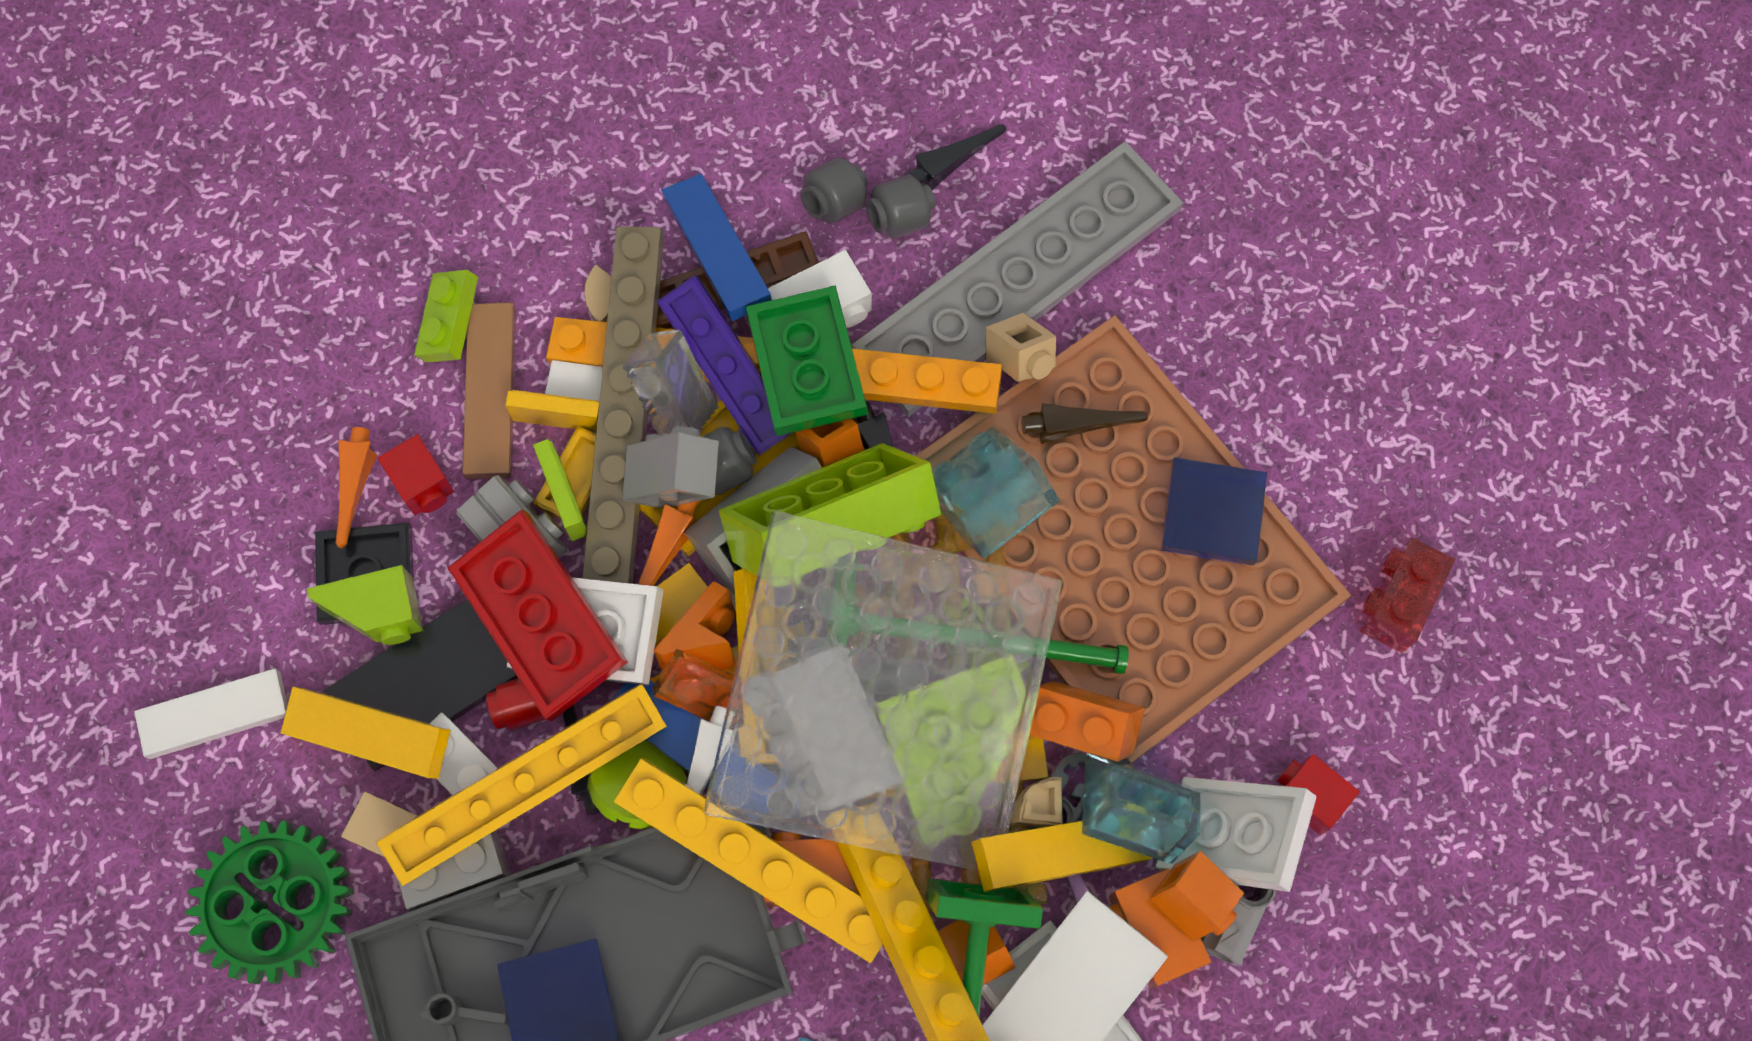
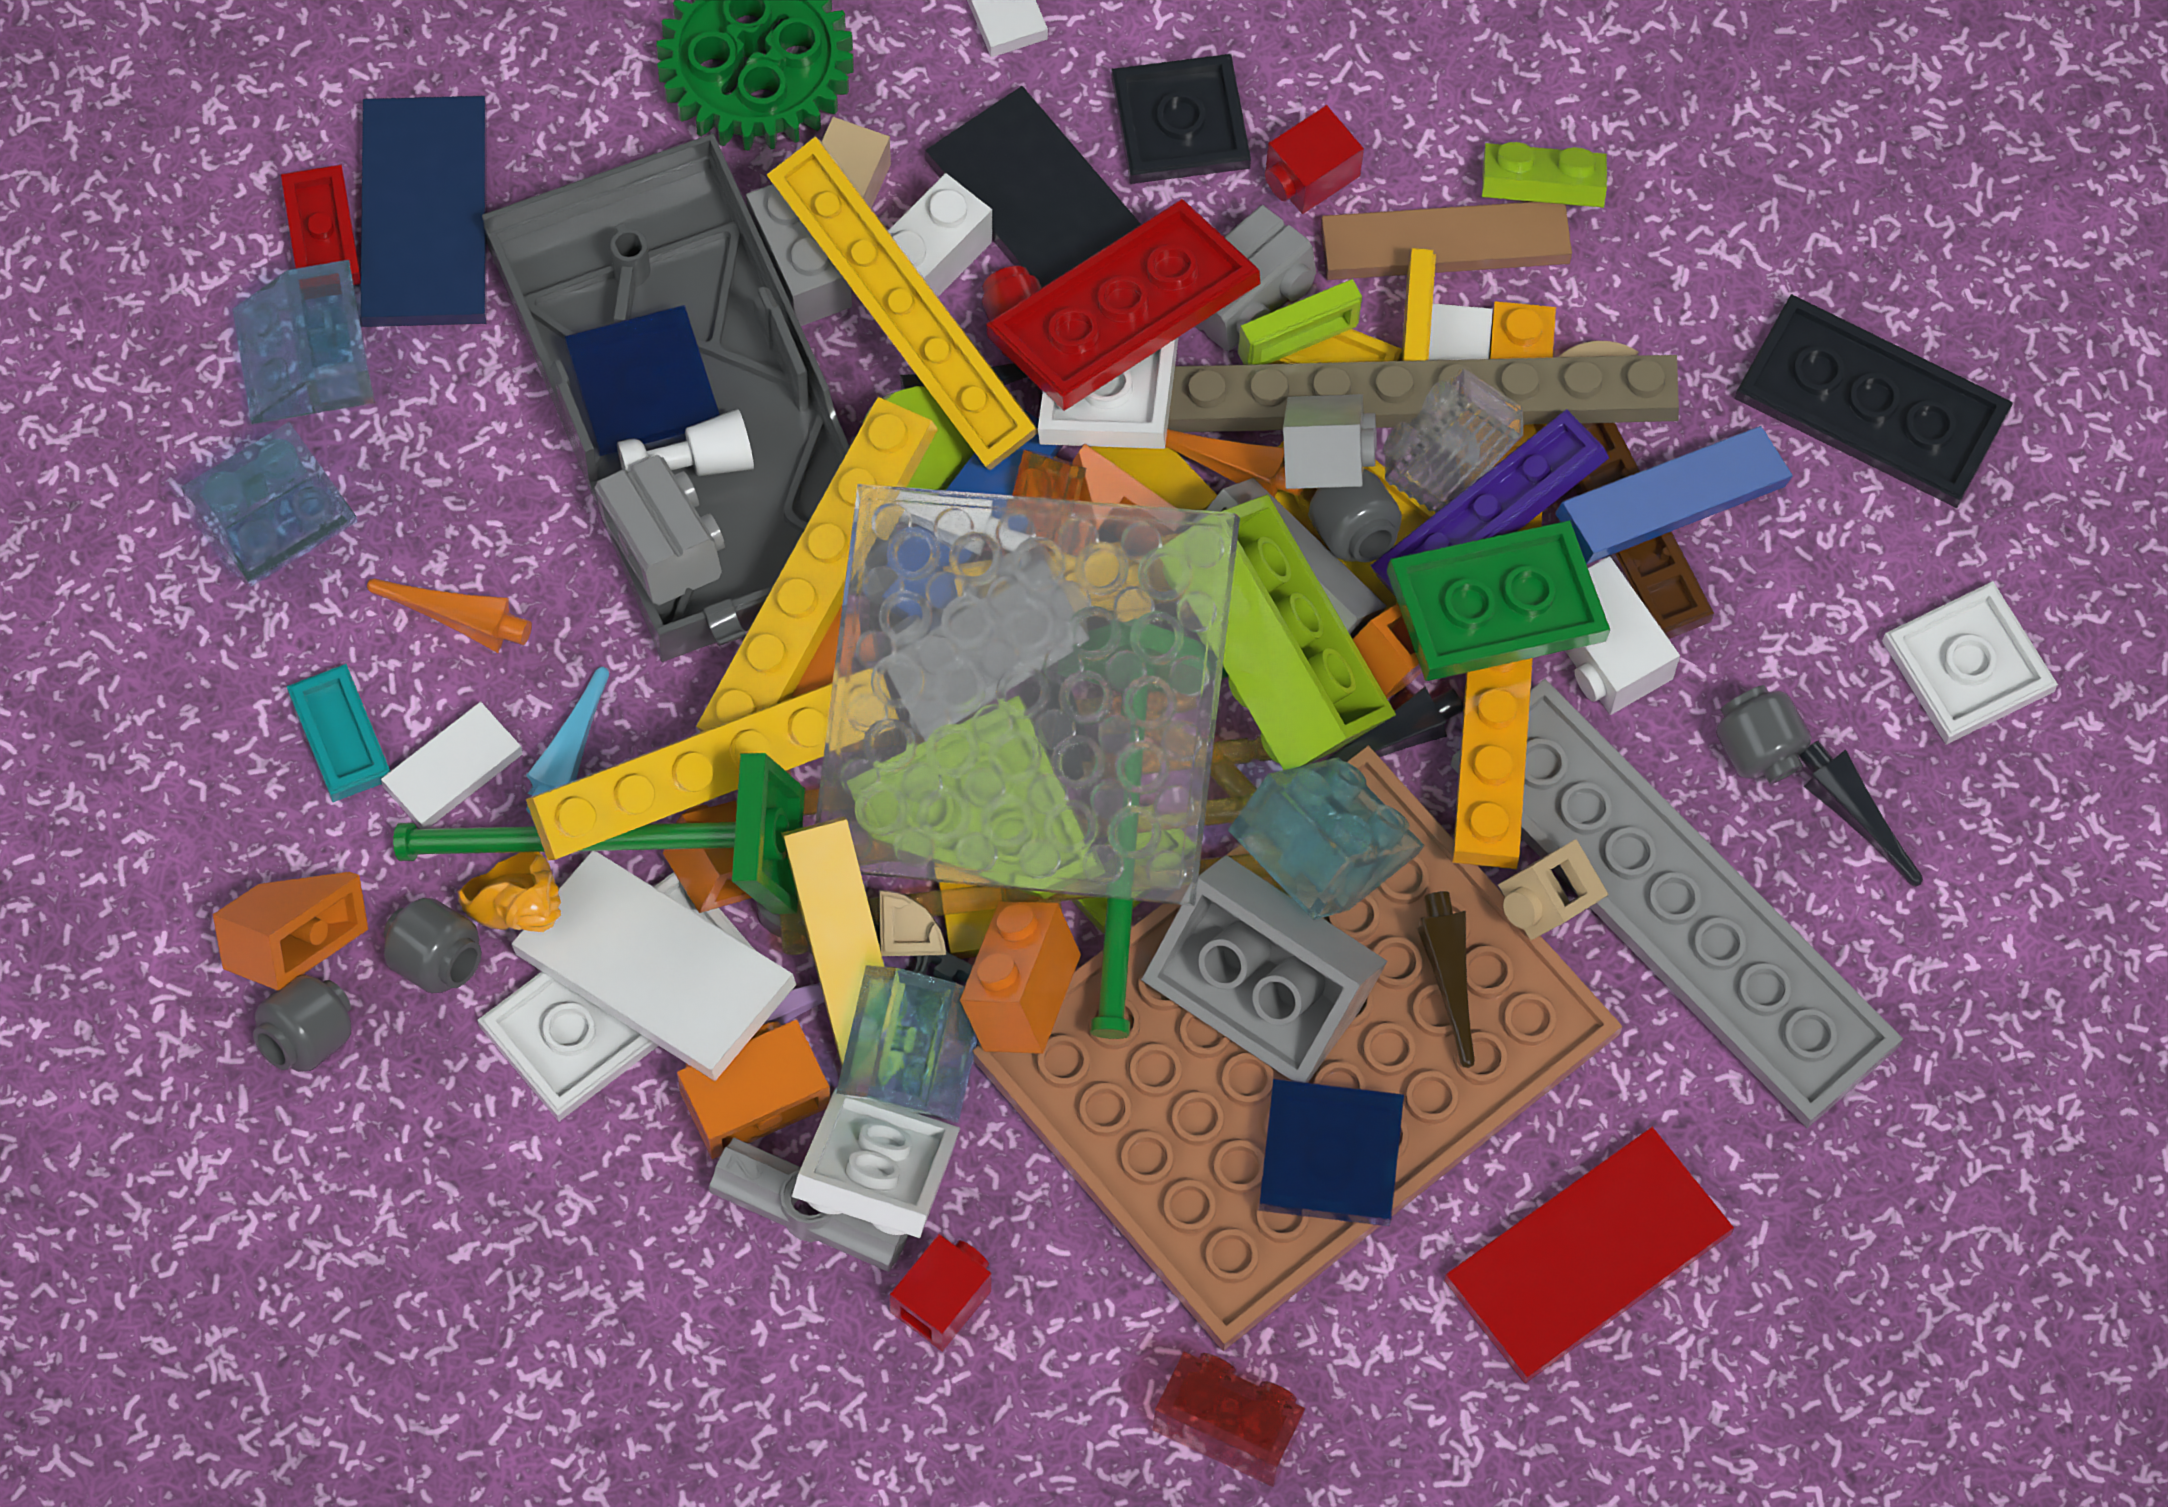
camera: 85 degrees right, 5 degrees down
(354, 468) = (1304, 87): orange piece -> none
(366, 732) = (963, 128): yellow tile -> none
(375, 604) = (1129, 124): lime slope -> none
(622, 947) = (710, 446): none -> white piece
(644, 120) = (1873, 400): none -> black tile
(700, 988) = (659, 528): none -> light grey brick
(834, 190) = (1781, 647): dark grey head -> none
(846, 79) = (1969, 662): none -> white tile
(1086, 541) = (1263, 970): none -> light grey slope
(1198, 897) = (788, 1109): orange brick -> none
(1272, 354) = (1588, 1254): none -> red tile

